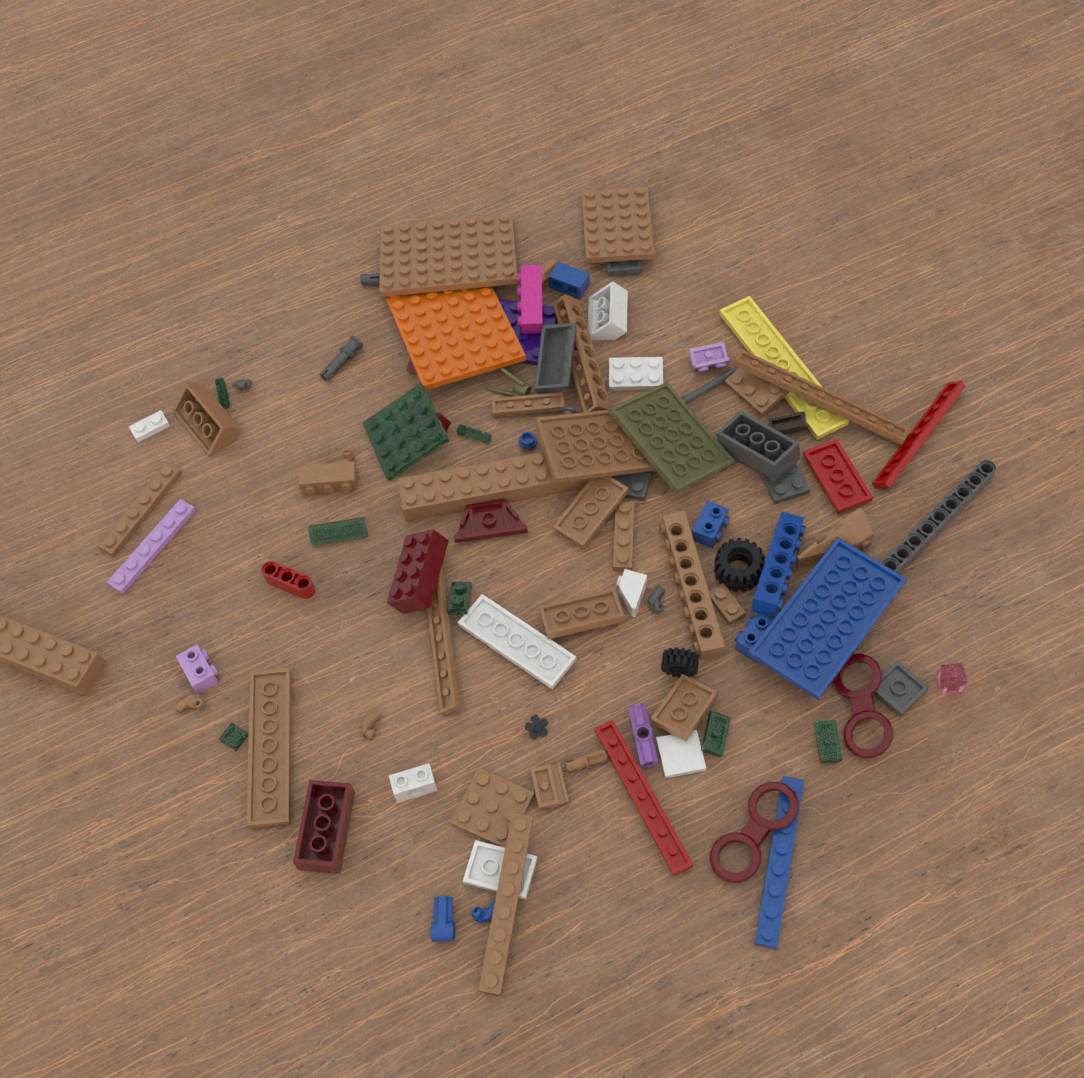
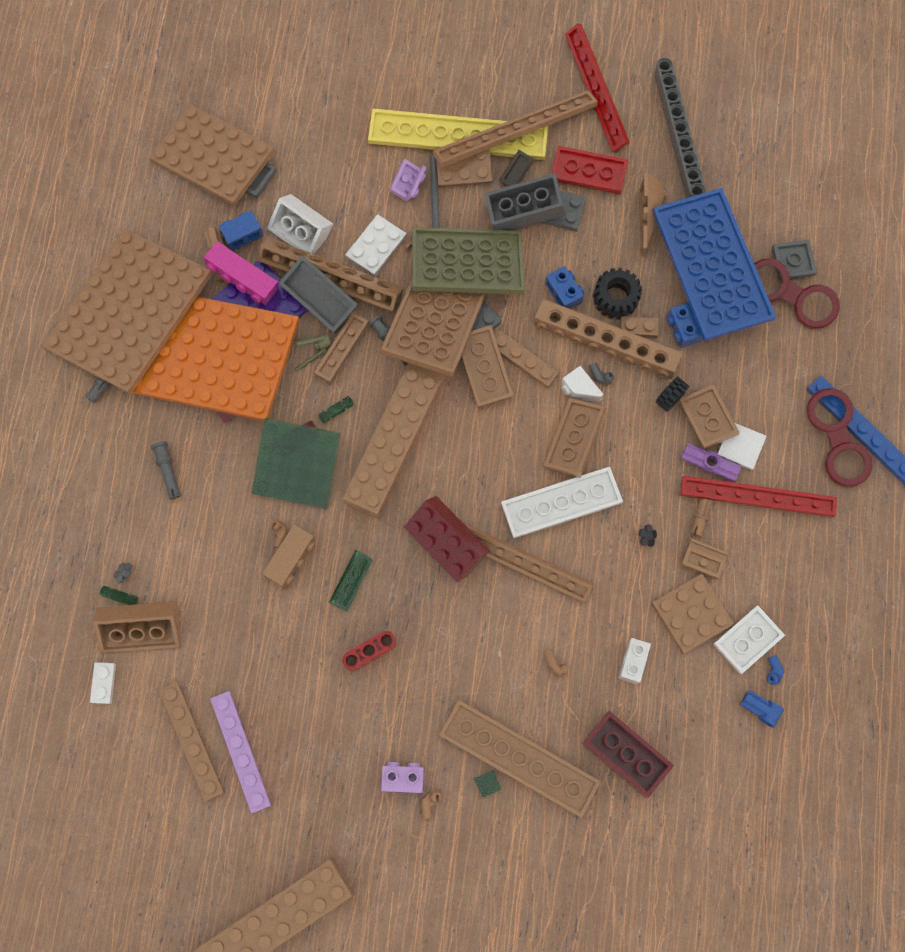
camera: 60 degrees left, 15 degrees up
(459, 598) = (491, 521): clear green plate -> none
(489, 521) = (433, 452): dark red wing -> none
(506, 904) = (782, 651): medium nougat plate -> none
(527, 440) = (376, 372): blue plate -> none
(715, 734) = (744, 410): clear green plate -> none
(777, 564) = (653, 286): blue brick -> none
(827, 741) = (802, 337): clear green plate -> none
(952, 678) = (812, 219): clear pink brick -> none

